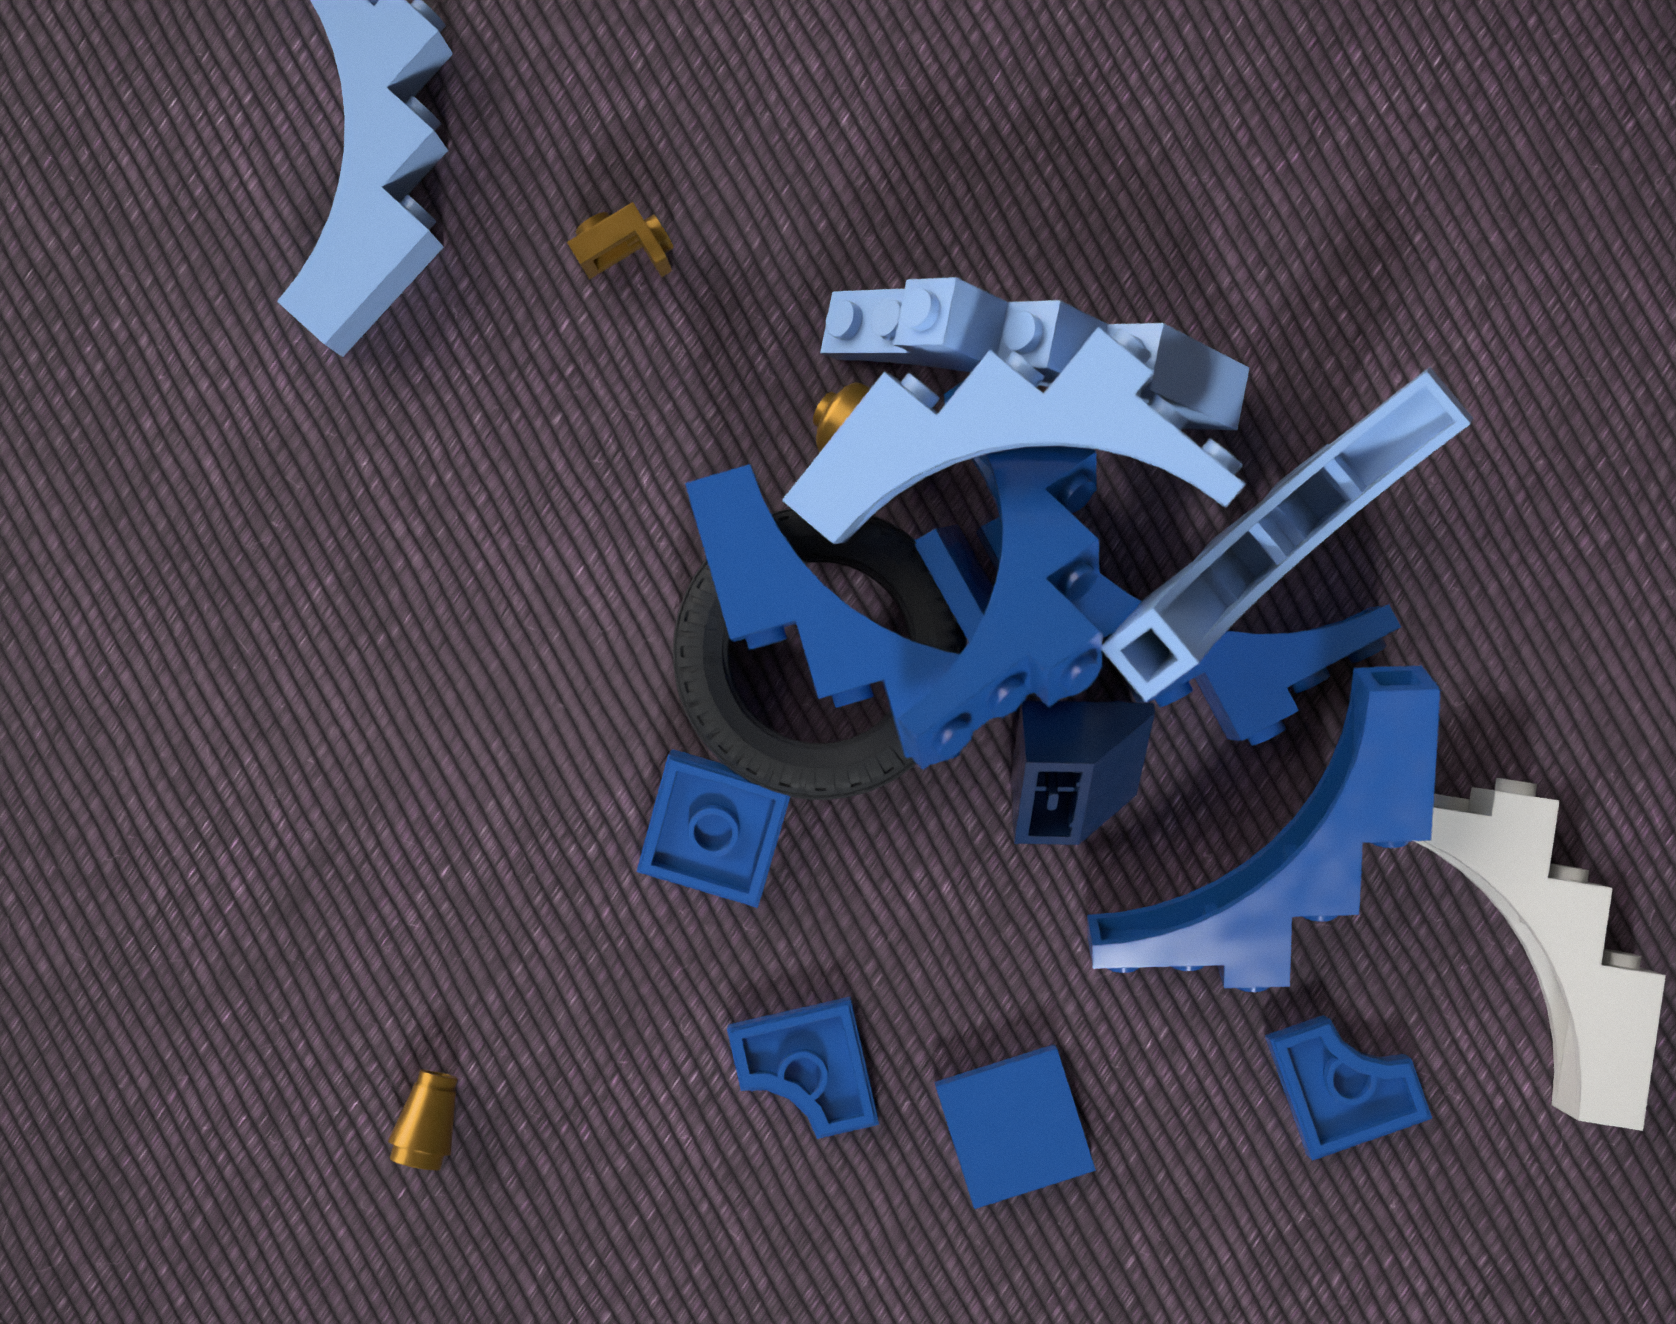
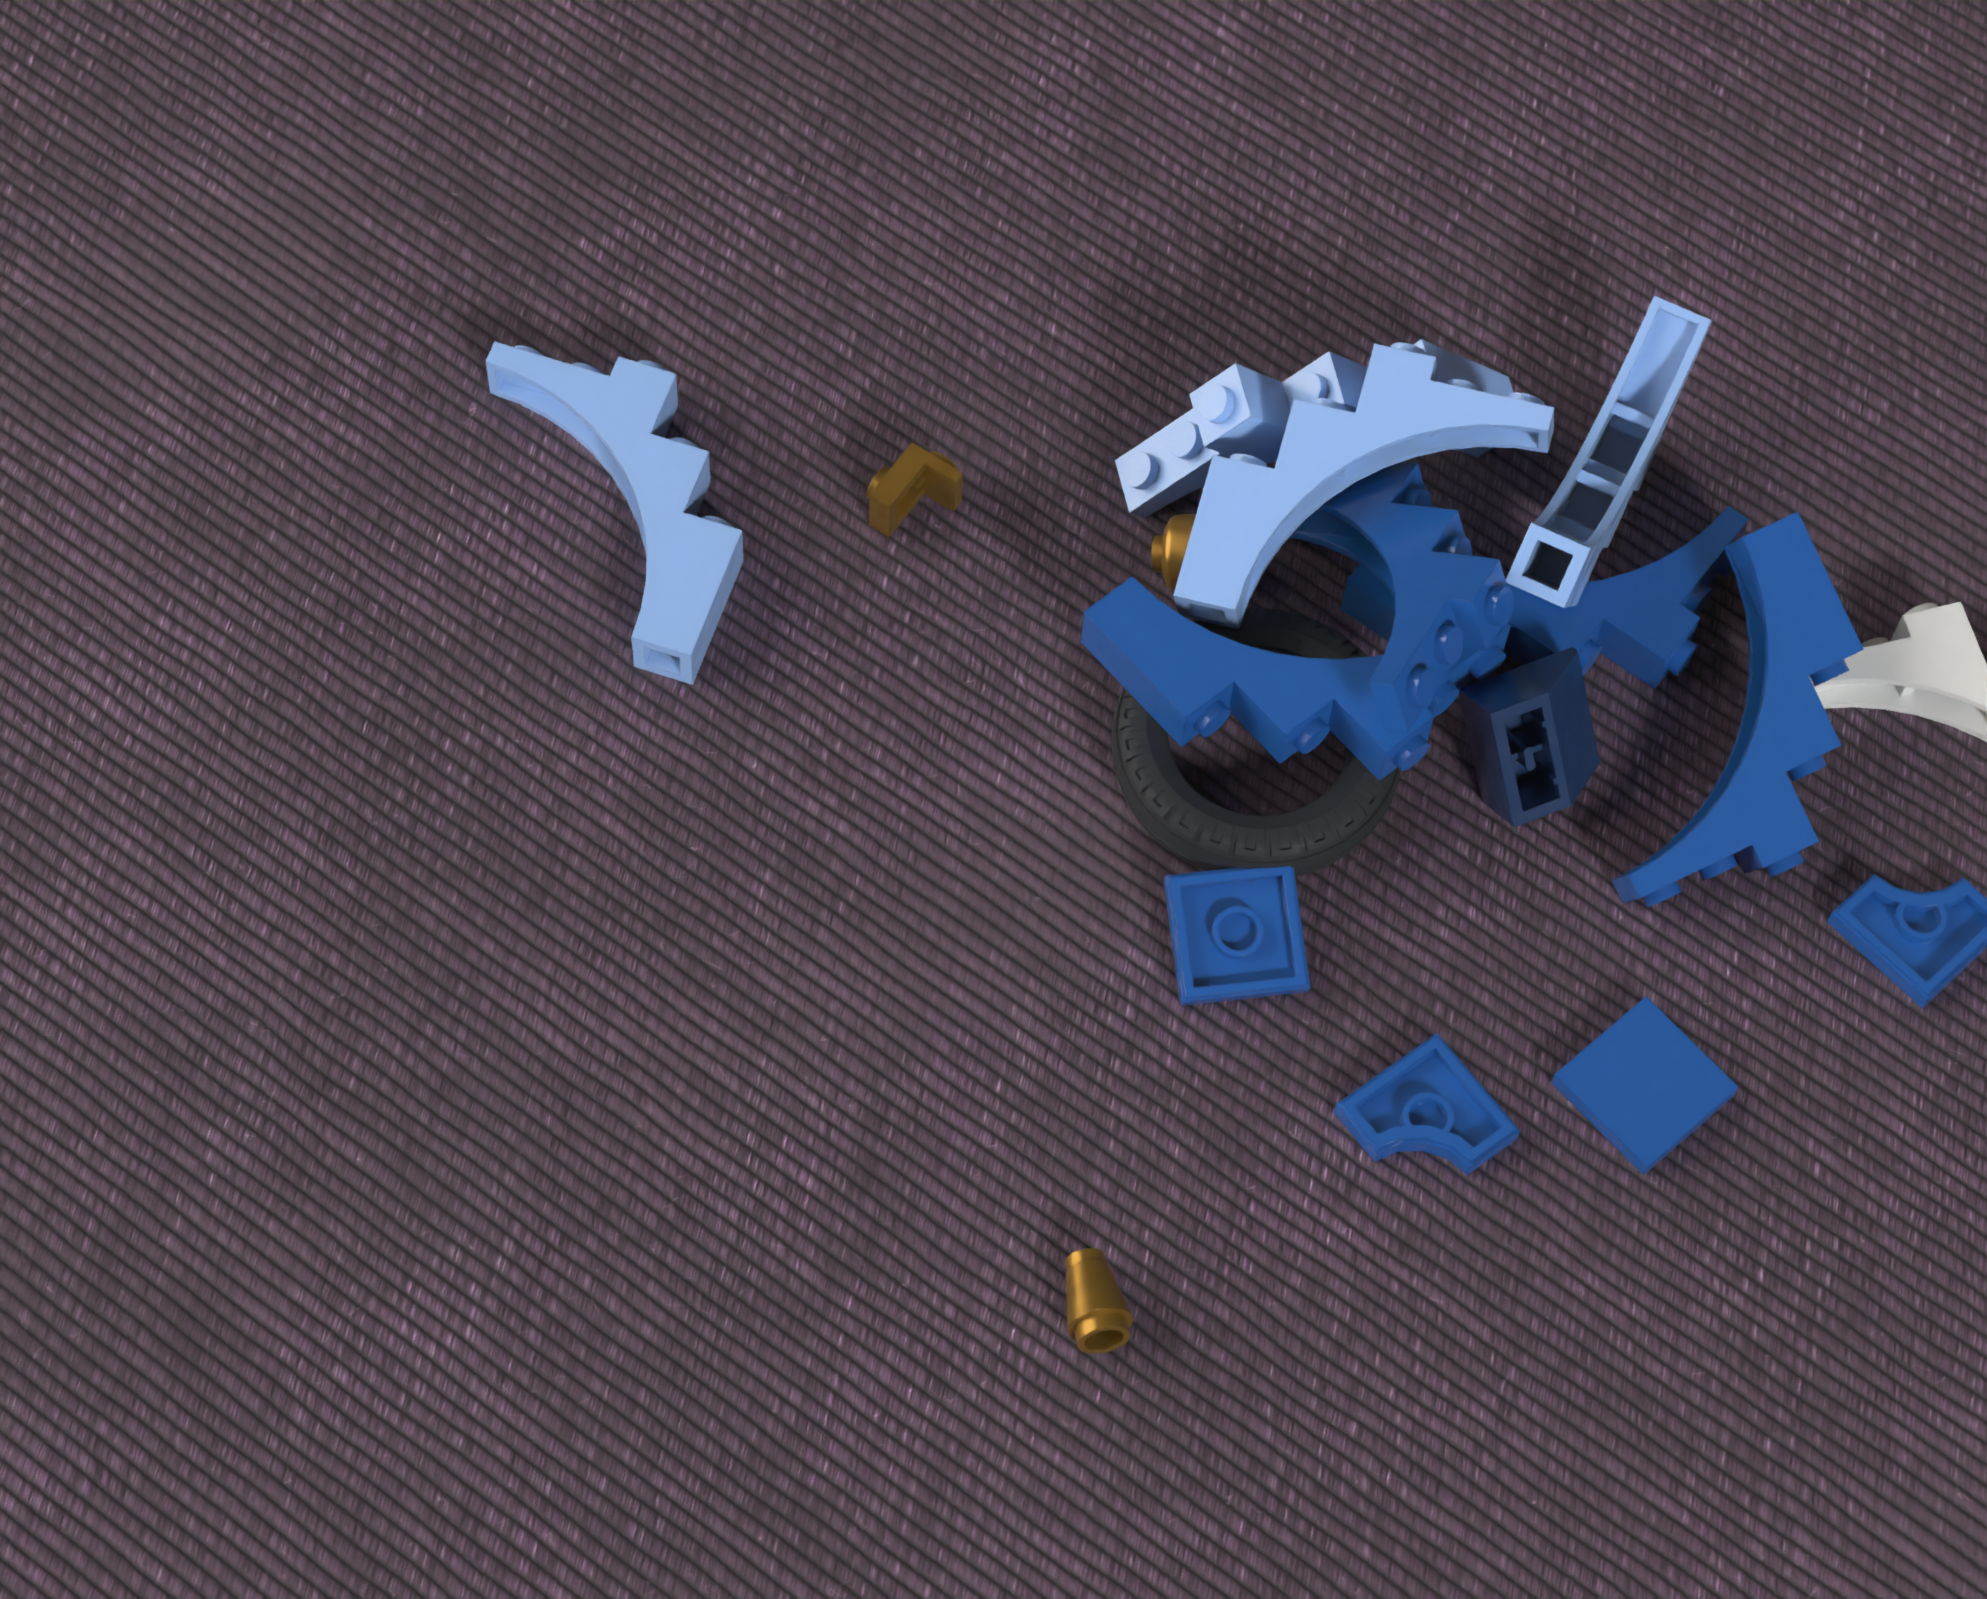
camera: 30 degrees left, 25 degrees down
(957, 575) = (1346, 615): blue tile -> none

